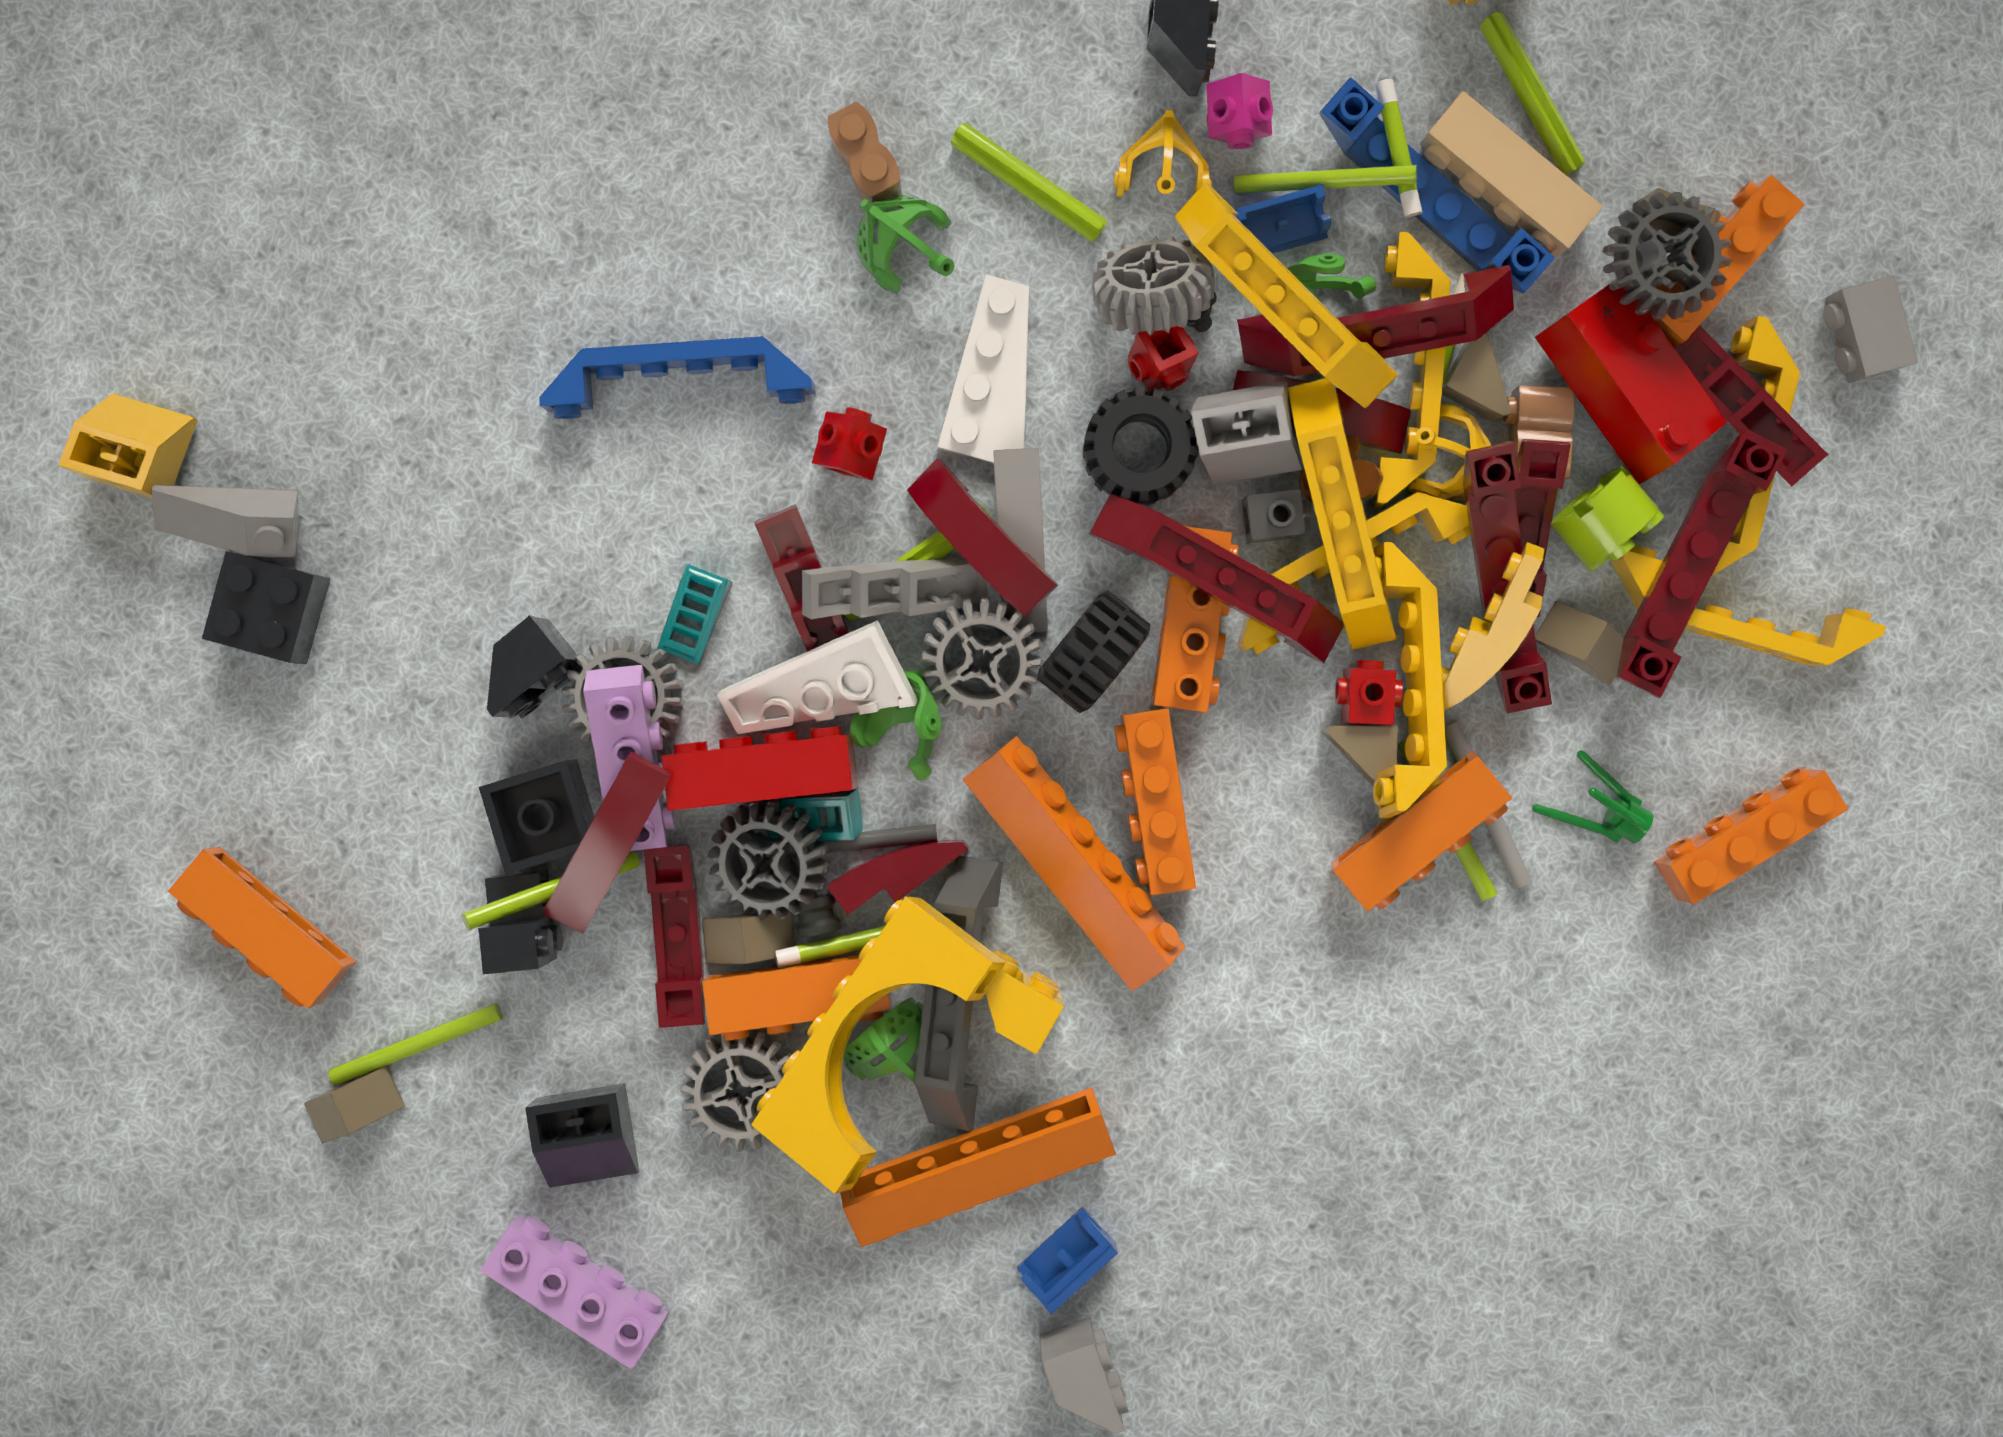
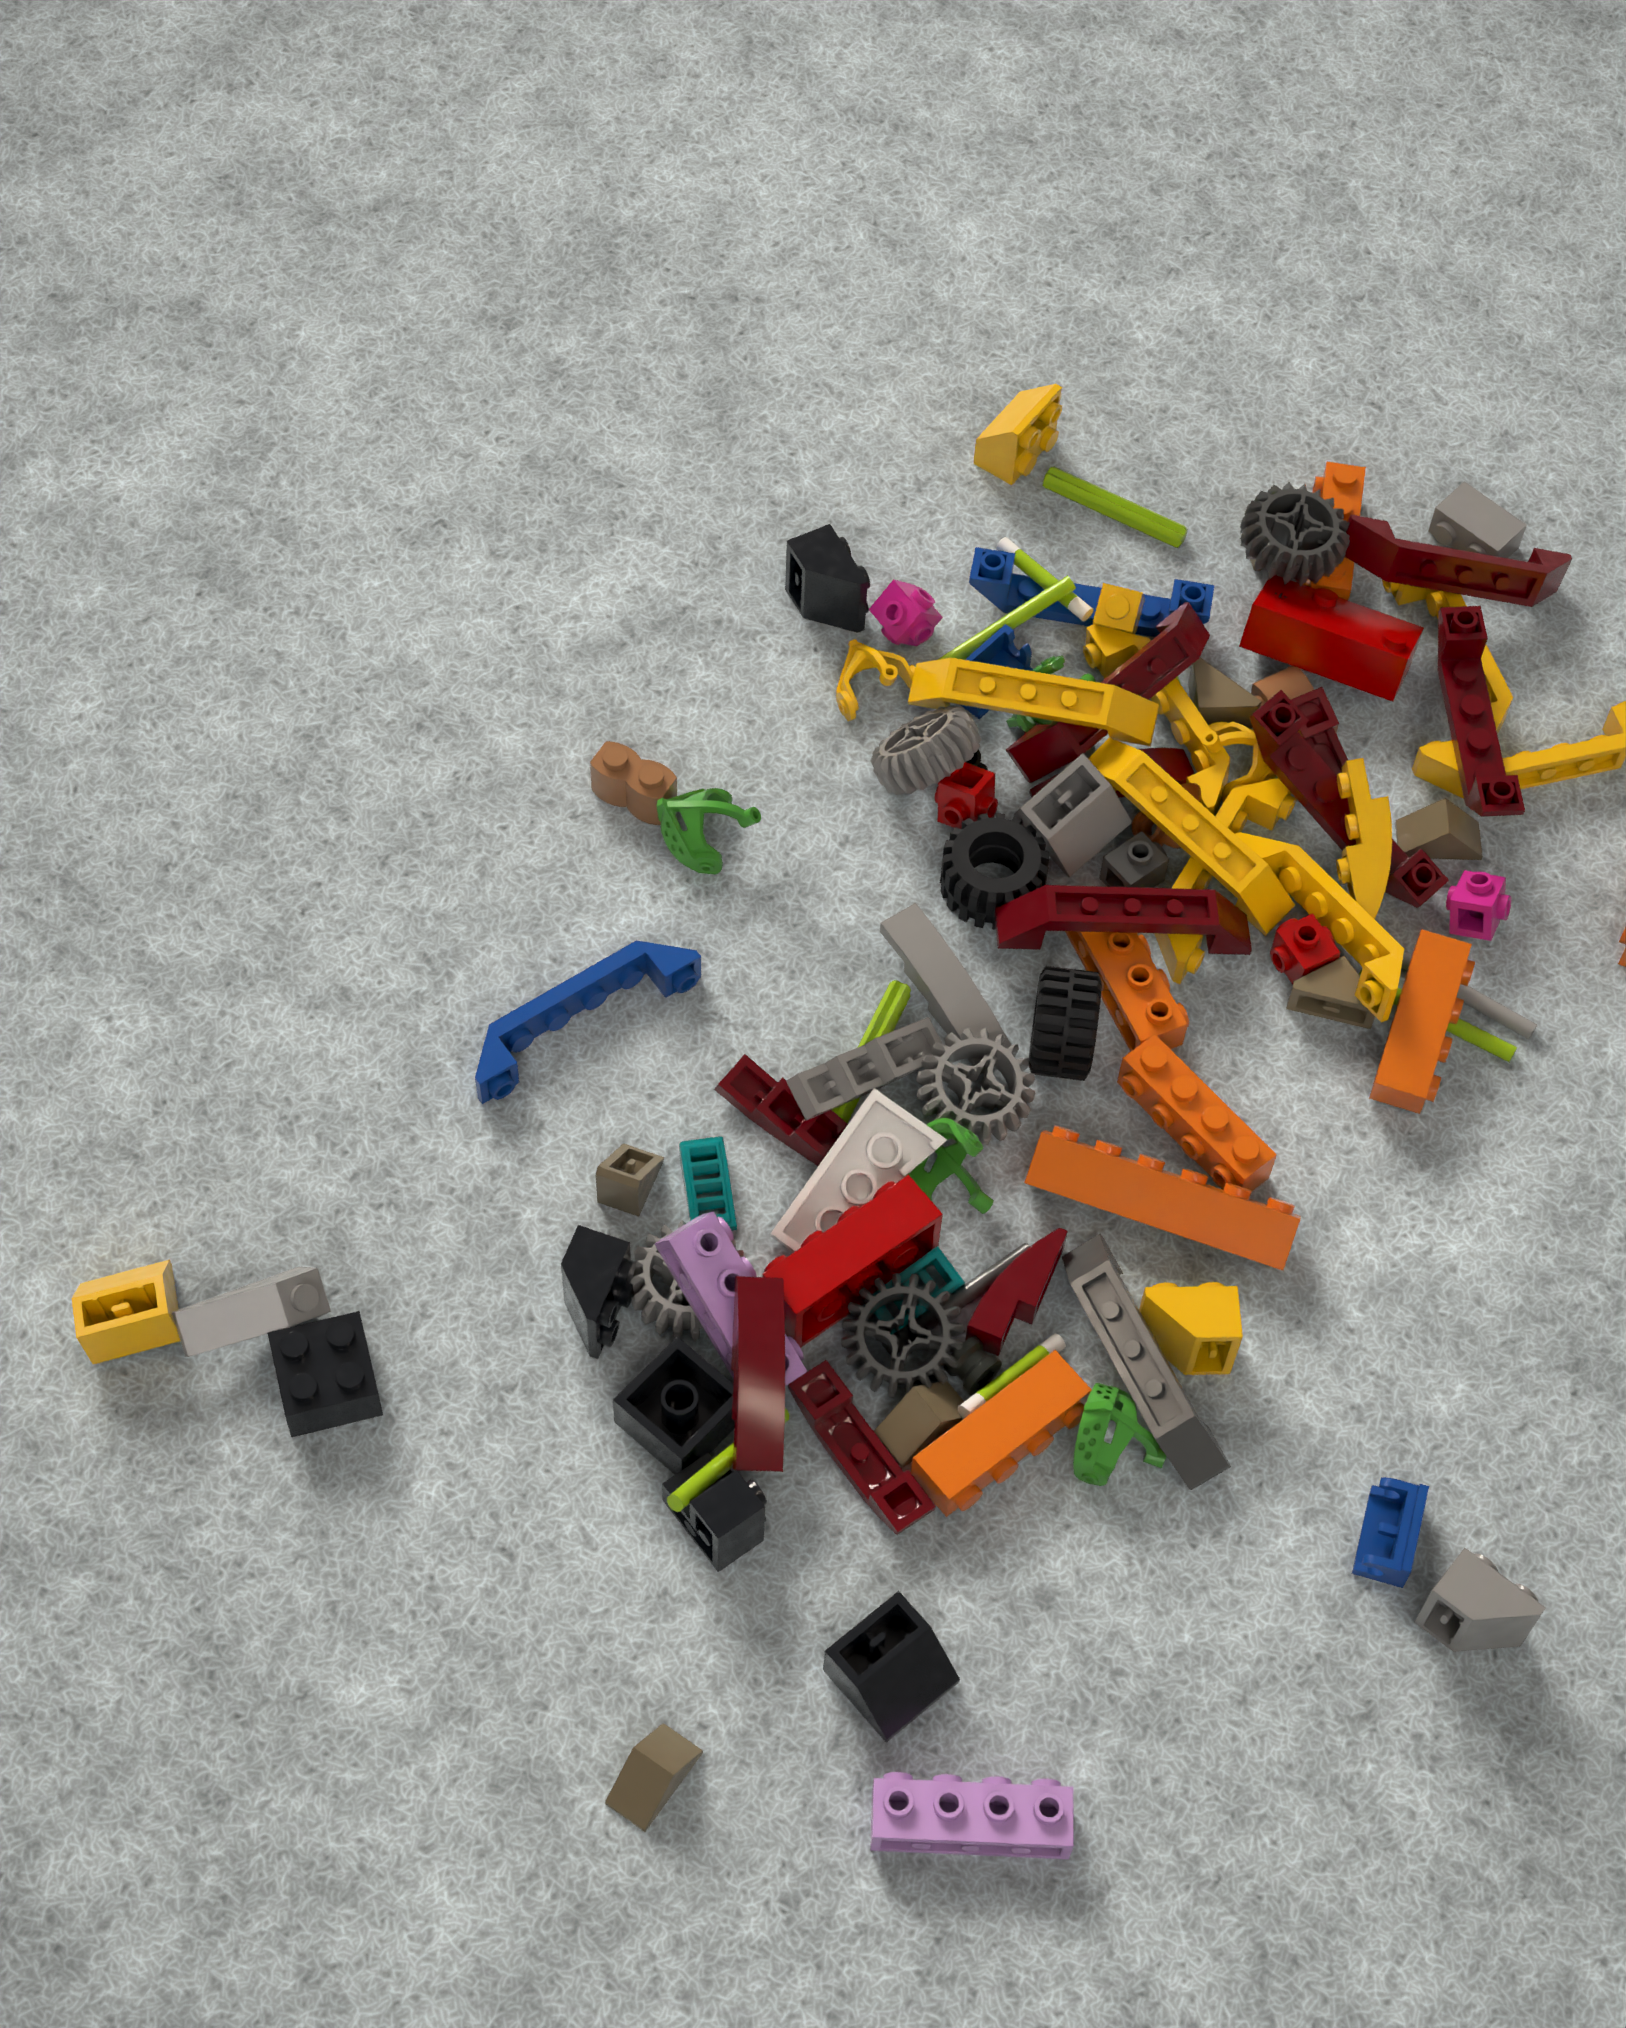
camera: 30 degrees left, 30 degrees down
(261, 927) = (477, 1648): orange brick -> none
(415, 1044) = (682, 1682): lime bar -> none
(630, 563) = (627, 1178): none -> dark tan slope
(719, 1097) = (1031, 1576): light grey gear -> none
(808, 1106) = (1082, 1311): yellow arch -> none
(849, 444) = (758, 987): red brick -> none
(977, 1167) = (1256, 1493): orange brick -> none
(980, 539) = (913, 993): dark red slope -> none
(991, 380) = (838, 890): white wing -> none
(1028, 182) = (774, 743): lime axle -> none
(1442, 231) = (1119, 608): none -> yellow brick
(1509, 175) = (1136, 555): tan brick -> none
(1561, 741) = (1477, 905): none -> dark pink brick
(1605, 518) = (1389, 733): lime brick -> none
(1624, 814) = (1568, 936): green plant -> none
(1741, 342) = (1454, 570): none -> dark red slope
(1749, 405) = (1423, 604): dark red slope -> none

